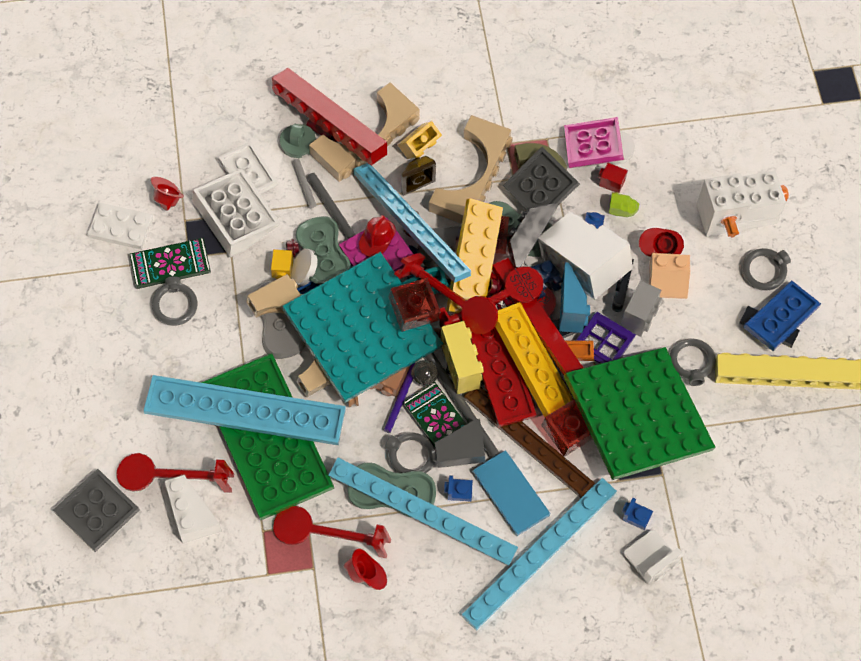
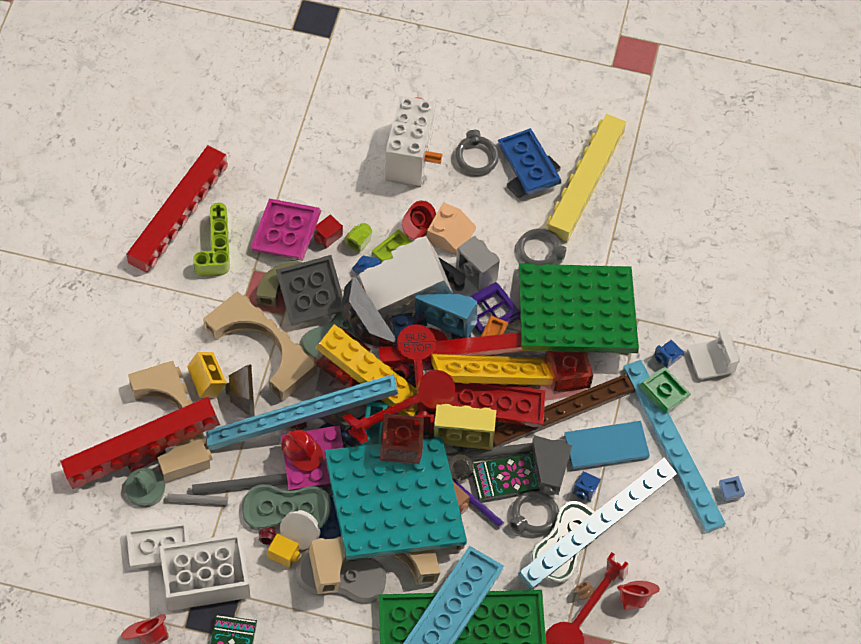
camera: 70 degrees left, 5 degrees down
(349, 523) = (584, 590): none -> medium nougat bush
(516, 622) = (731, 488): none -> medium blue plate
(574, 55) = (177, 209): none -> red brick
(578, 89) = (218, 238): none -> lime beam
(592, 523) = (664, 390): none -> tile
(629, 233) = (384, 250): none -> lime plate

